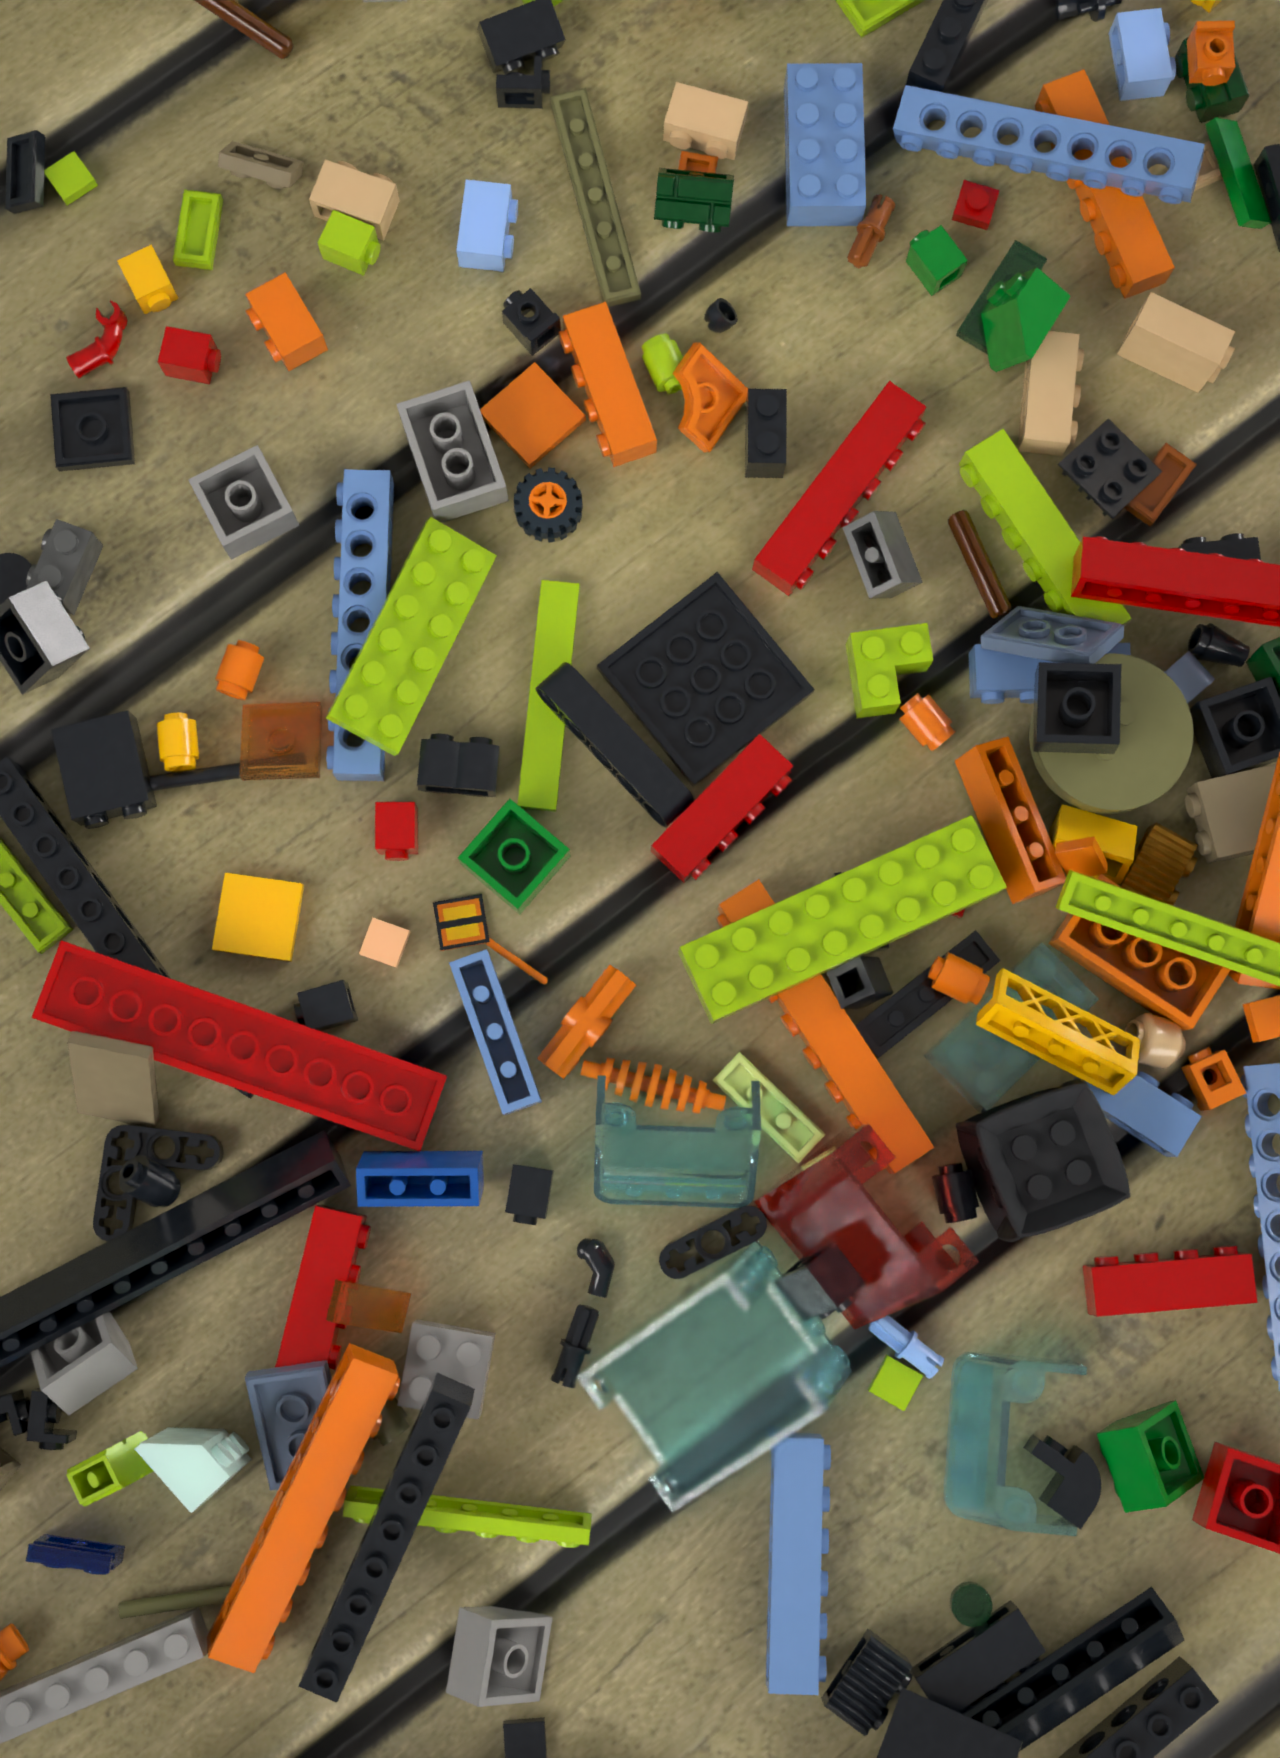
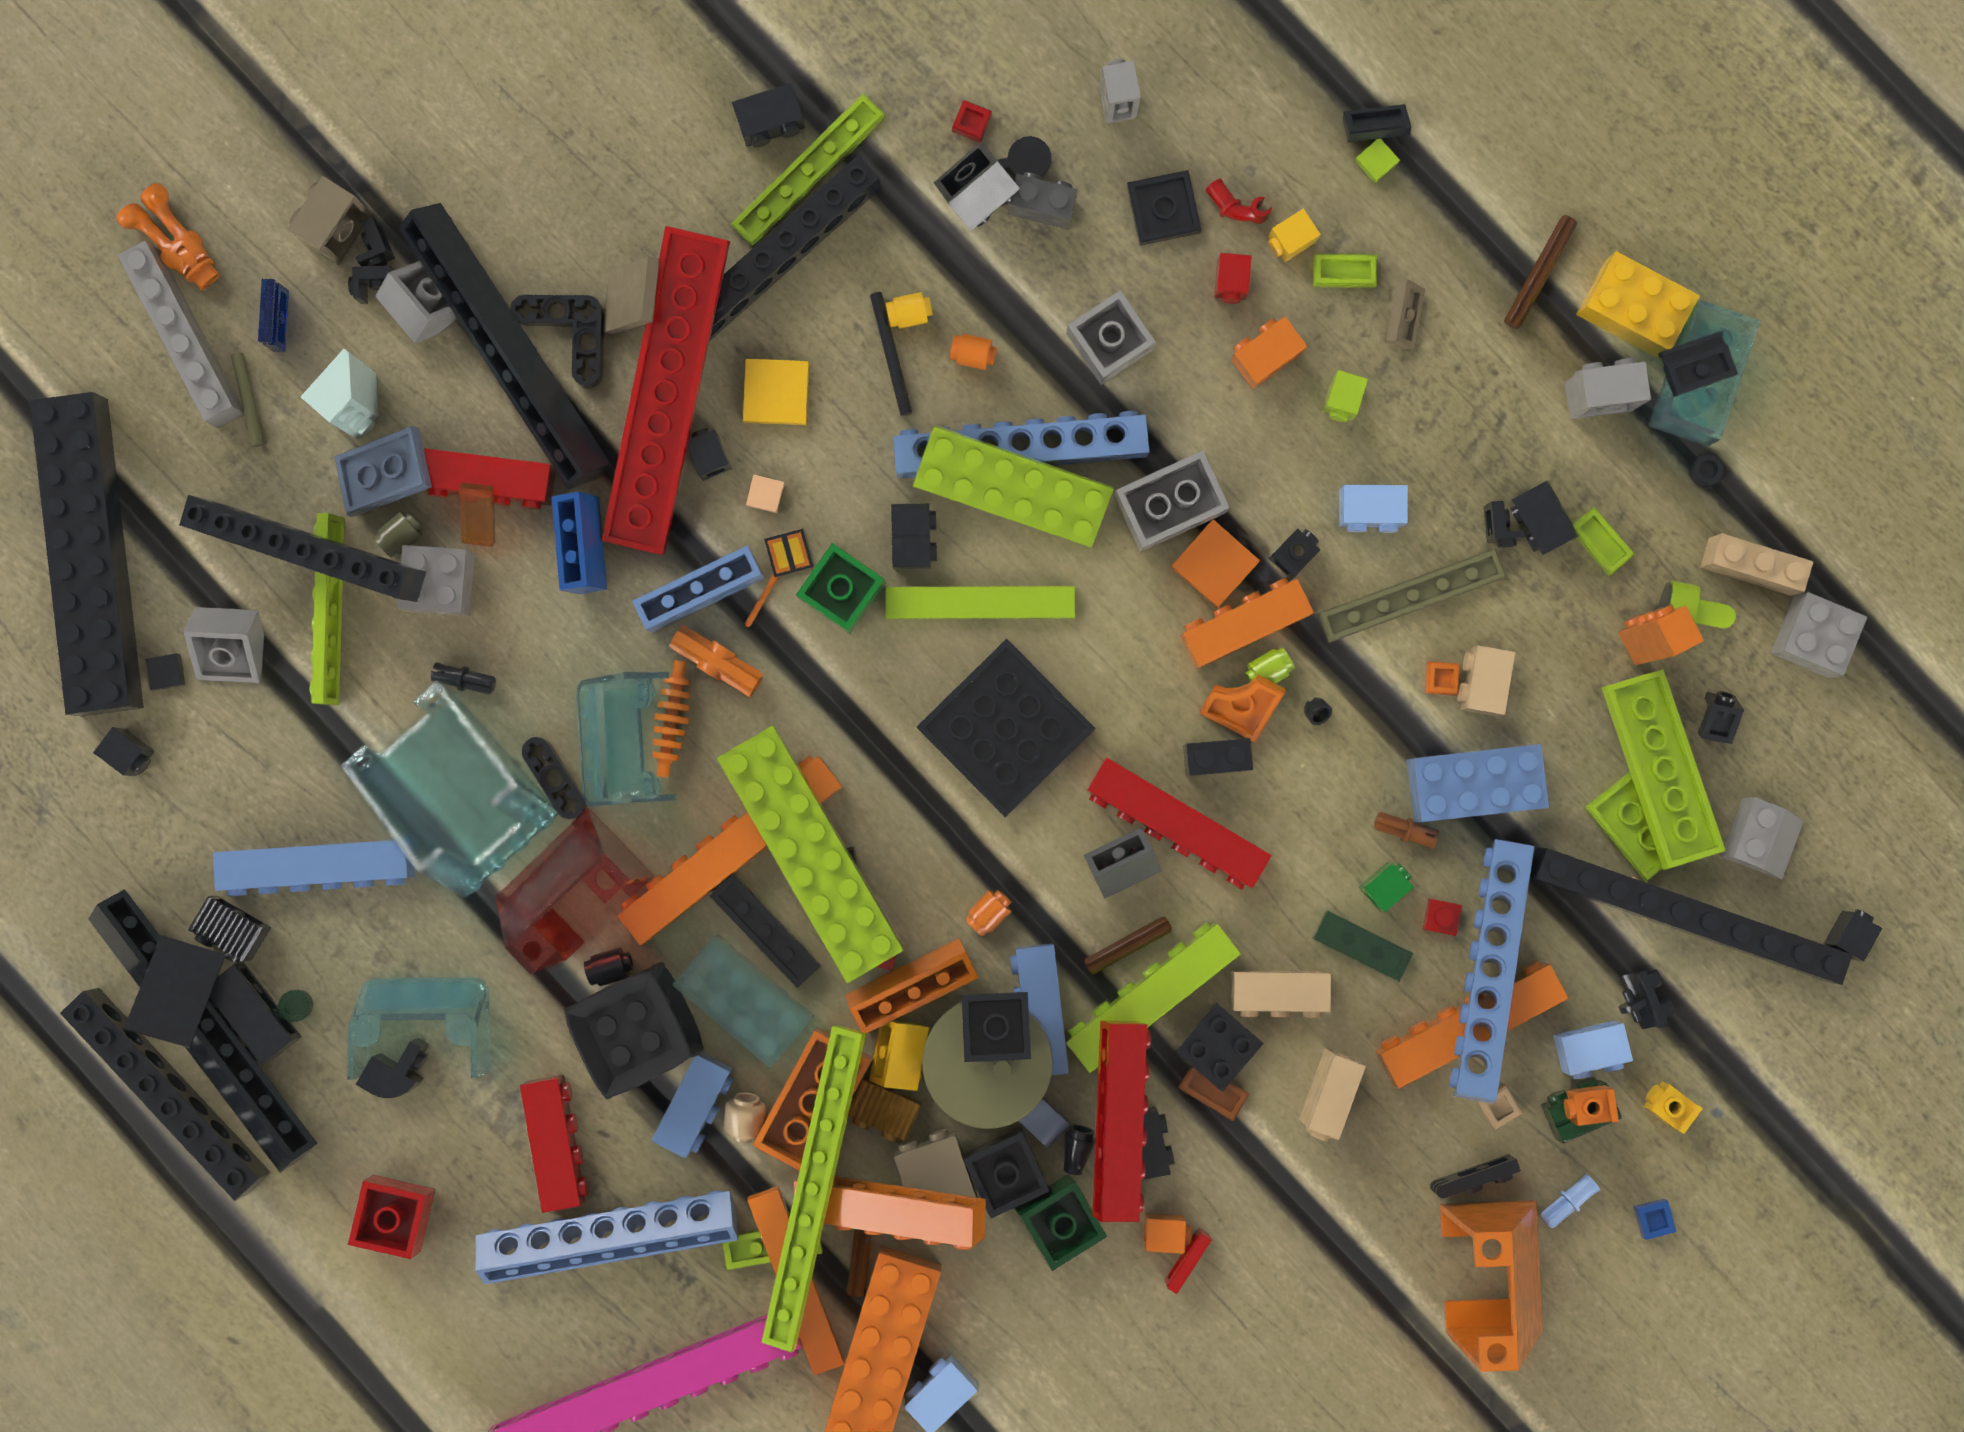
camera: 90 degrees right, 5 degrees up
(104, 769) = (880, 255): black brick -> none
(108, 1470) = (335, 331): lime brick -> none
(149, 1182) = (557, 333): black brick -> none
(281, 741) = (918, 392): clear orange tile -> none
(302, 1509) = (320, 482): orange brick -> none
(355, 194) = (1384, 396): tan brick -> none
(396, 830) = (855, 492): red brick -> none
(529, 1193) = (577, 629): black brick -> none
(548, 490) = (1141, 574): black wheel -> none
(601, 1264) = (529, 691): black arm -> none
(615, 744) = (942, 659): black beam -> none
(694, 199) = (1415, 677): dark green brick -> none
(722, 808) = (898, 751): red brick -> none
(779, 1115) = (662, 816): yellowish green tile -> none
(820, 1283) = (522, 862): black brick -> none
(860, 982) = (766, 876): black brick -> none
(876, 660) = (1037, 866): lime brick -> none
(895, 1382) = (458, 932): lime tile -> none
(906, 1345) = (485, 940): light blue axle -> none
(958, 978) = (776, 953): orange brick -> none
(1020, 317) = (1335, 959): green slope -> none
(1052, 636) = (1063, 1007): sand blue tile -> none
(1060, 1039) = (725, 1039): yellow fence -> none
(1082, 856) = (882, 1045): orange tile -> none
(1150, 1457) = (417, 1138): green slope -> none
(1225, 1080) = (713, 1177): orange brick -> none
(1237, 173) = (1495, 1139): green tile -> none

